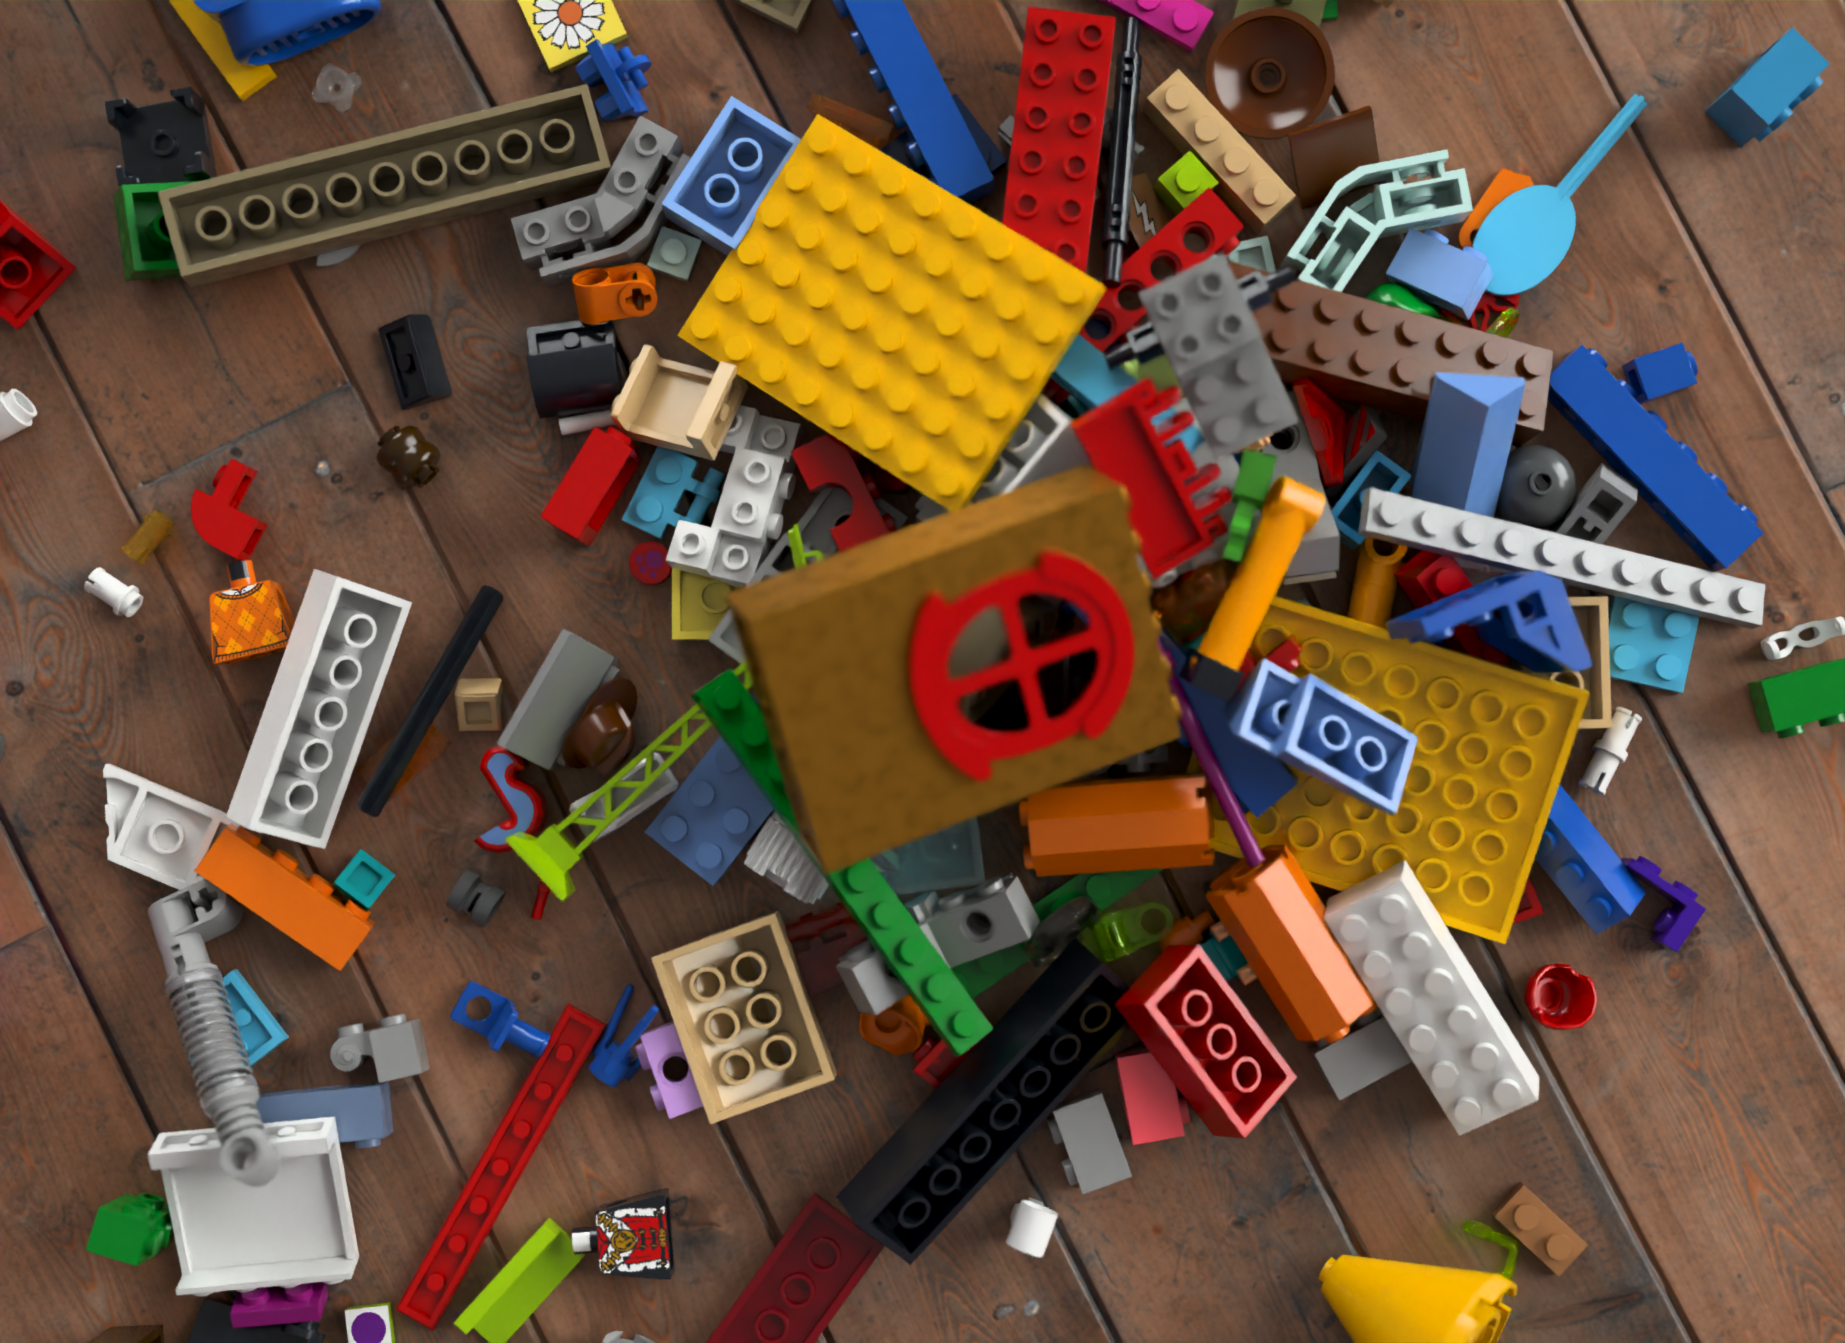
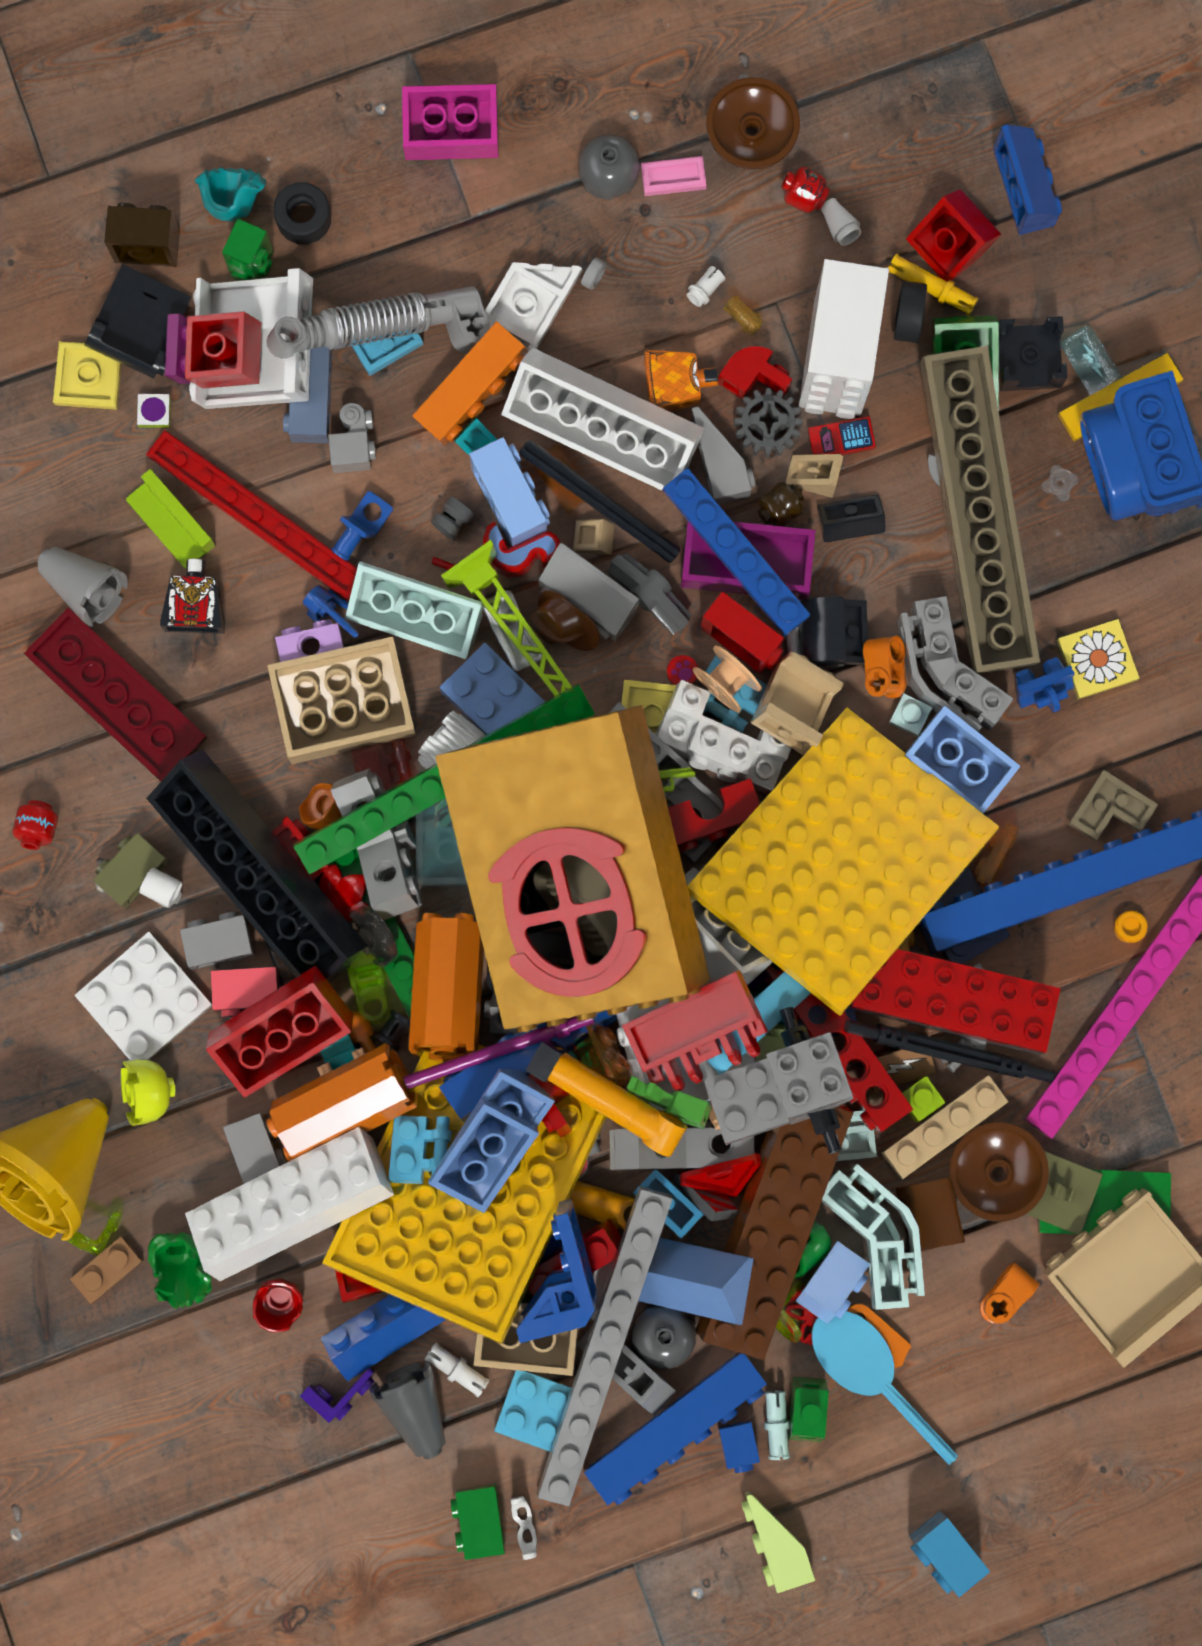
camera: 90 degrees right, 5 degrees down
(41, 1166) = (298, 194): none -> black tyre
(48, 1265) = (229, 192): none -> teal hair
(79, 283) = (939, 288): none -> yellow pin
(112, 746) = (594, 273): none -> light grey tile
(120, 308) = (910, 312): none -> black tyre
(162, 64) = (1090, 359): none -> clear light blue slope
(166, 390) = (843, 338): none -> white brick
(275, 1245) = (223, 350): none -> red brick
(300, 503) = (779, 422): none -> dark grey gear
(306, 386) = (842, 437): none -> tile
(358, 414) = (815, 473): none -> tan slope
(359, 542) = (723, 466): none -> light grey slope
(431, 824) = (509, 491): none -> light blue brick
(482, 506) = (736, 552): none -> blue plate
(487, 490) = (784, 548): none -> magenta piece
(546, 616) = (651, 591): none -> dark grey piece
(611, 934) = (414, 610): none -> light aqua slope
(658, 497) = (727, 678): none -> light nougat piece
(1004, 980) = (344, 891): none -> red plate
(1011, 1276) = (126, 871): none -> olive brick
(1178, 1230) = (143, 999): none -> white plate
(1194, 889) = (390, 1025): none -> black bush
(1301, 1210) = (145, 1090): none -> neon yellow cylinder
(1342, 846) = (410, 1145): none -> medium azure plate
(1419, 45) = (1012, 1290): none -> orange piece
(1532, 1134) = (178, 1270): none -> green hair
(1607, 288) = (808, 1409): none -> green torso
(1627, 328) = (777, 1425): none -> light aqua pin
(1668, 803) = (413, 1408): none -> dark grey cone
(1786, 301) = (784, 1553): none -> yellowish green slope

